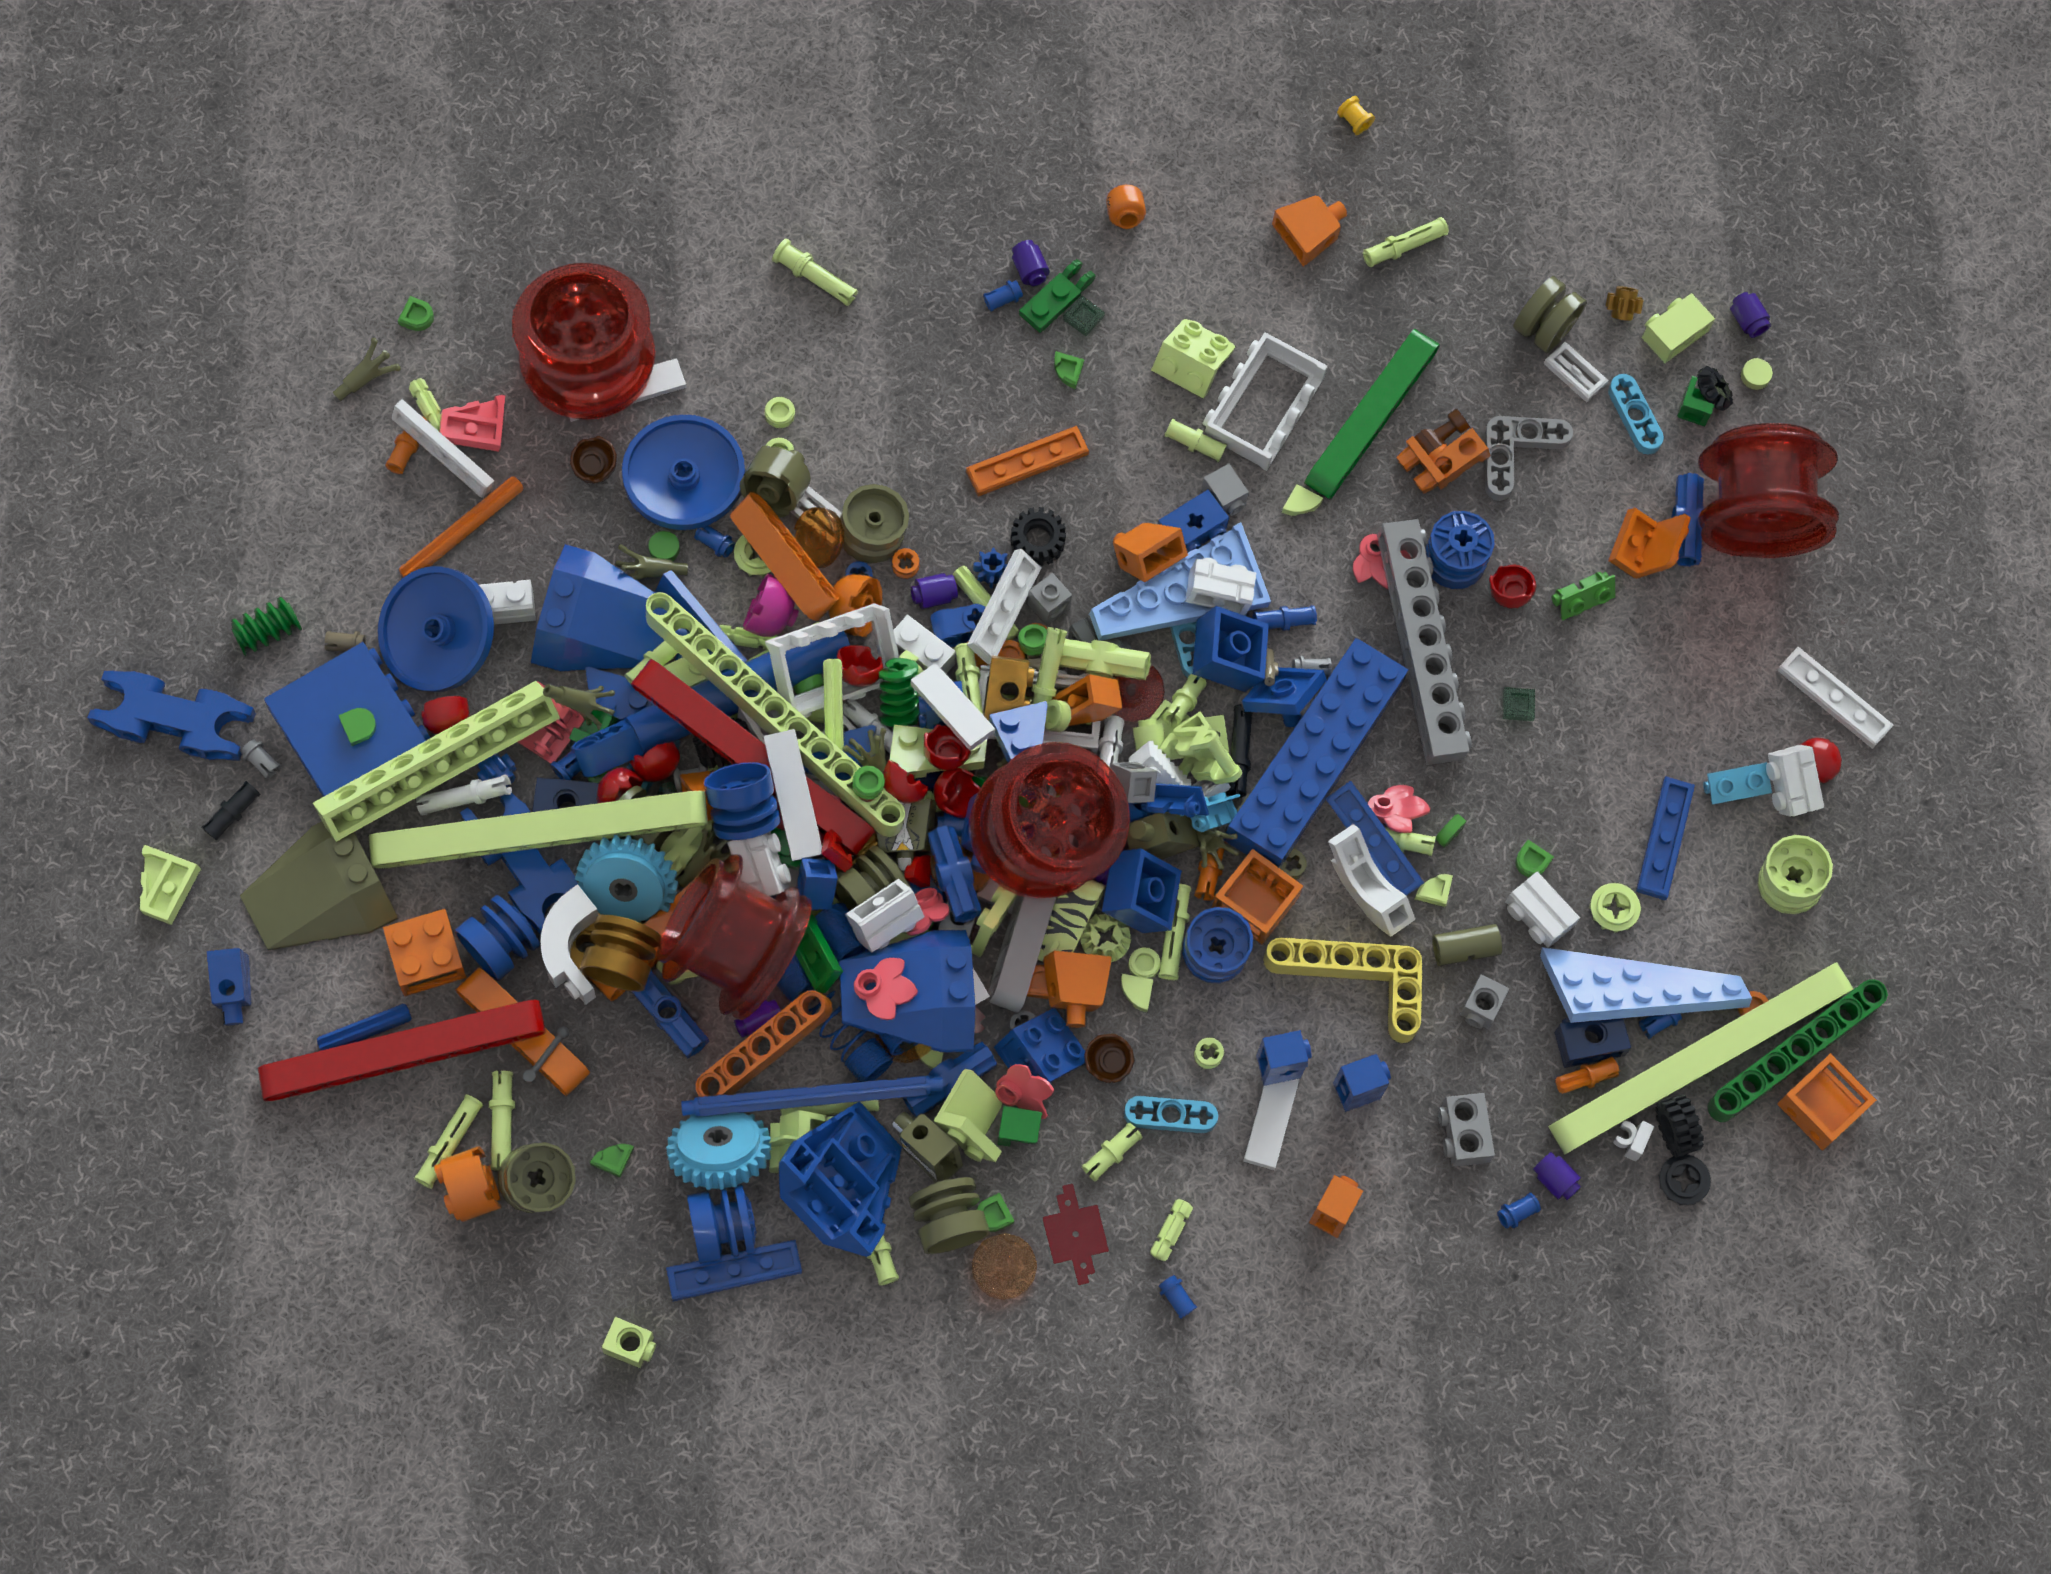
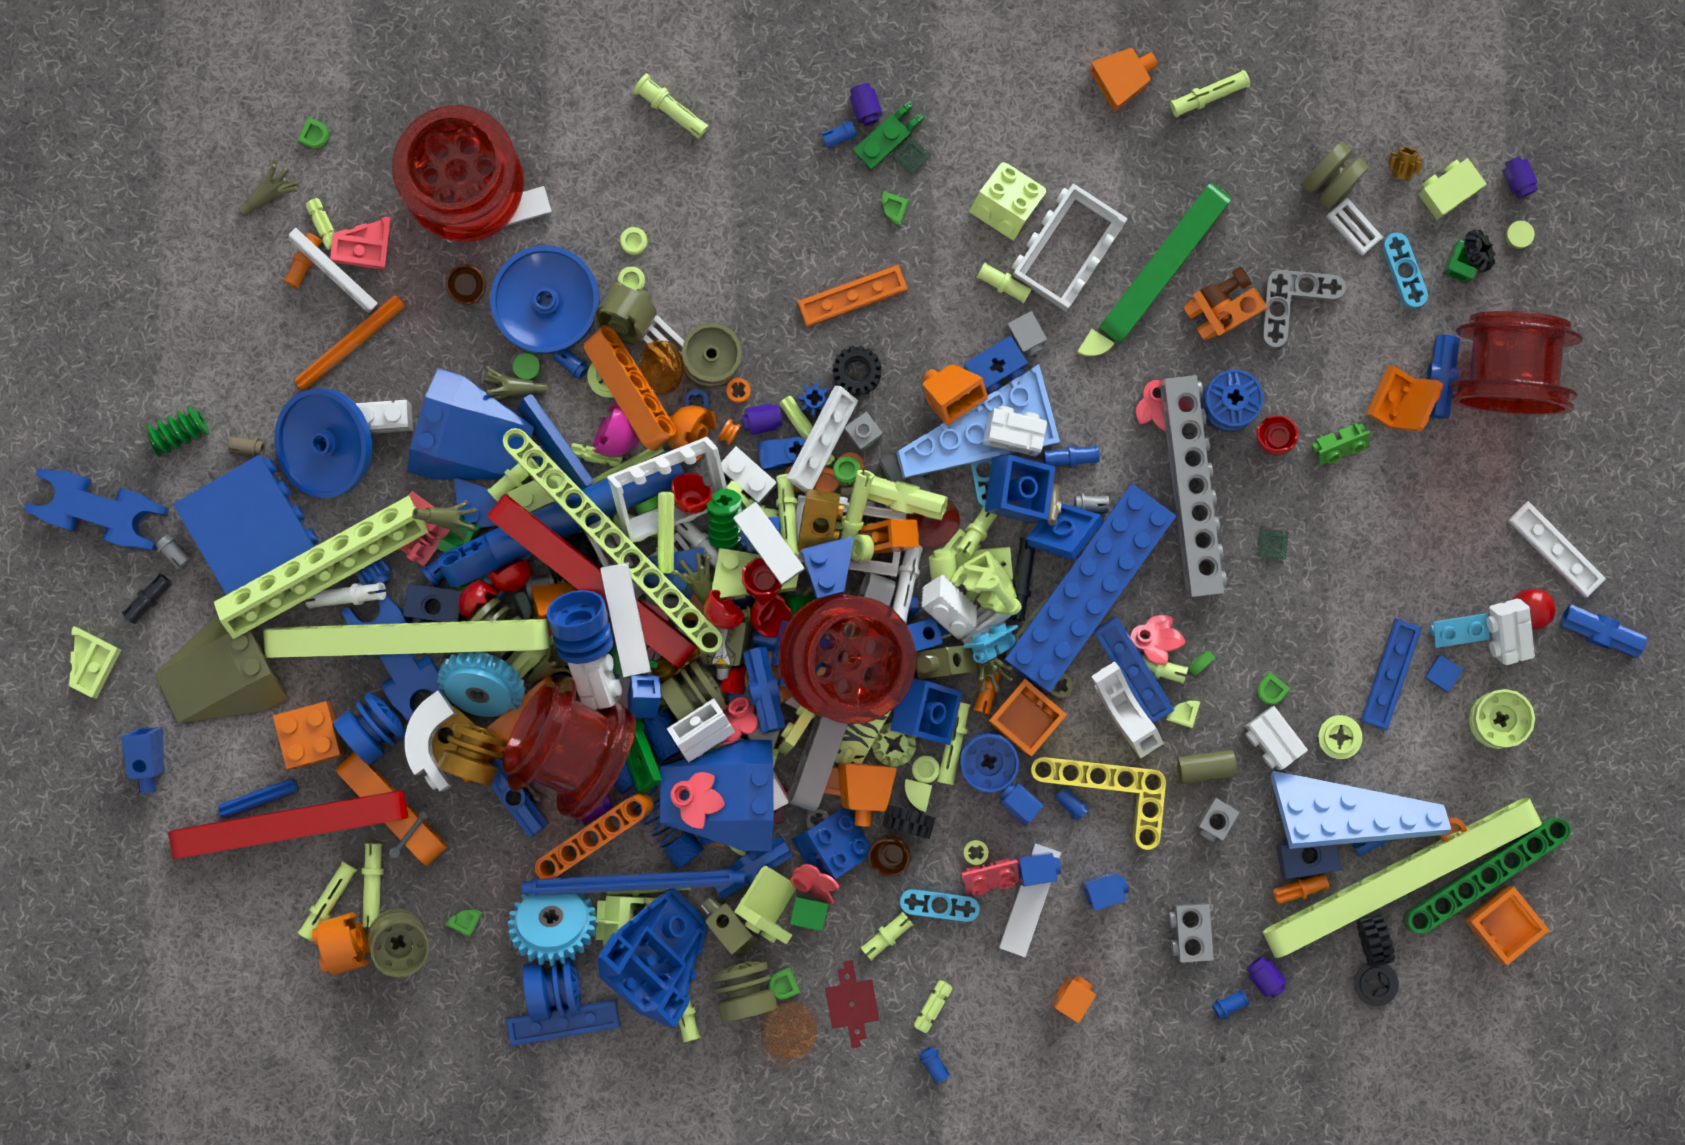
camera: 10 degrees right, 15 degrees up
(358, 725) = (254, 532): bright green tile -> none
(444, 713) = (331, 521): red hair -> none
(618, 1333) = (461, 1087): yellowish green brick -> none
(834, 851) = (660, 669): red tile -> none
(868, 782) = (691, 613): bright green tile -> none
(898, 606) = (729, 432): none -> orange bush
(1126, 206) = (956, 50): orange head -> none
(1129, 1016) = (908, 821): none -> black tyre
(1137, 781) = (923, 621): light grey brick -> none
(1177, 800) = (967, 641): blue hinge -> none
(1229, 1074) = (1001, 875): none -> coral hinge
(1256, 989) = (1020, 803): none -> blue brick
(1315, 993) = (1071, 803): none -> blue pin
(1637, 1139) = (1338, 949): white tile -> none
(1724, 834) = (1443, 673): none -> blue tile
(1897, 780) = (1603, 631): none -> blue piece

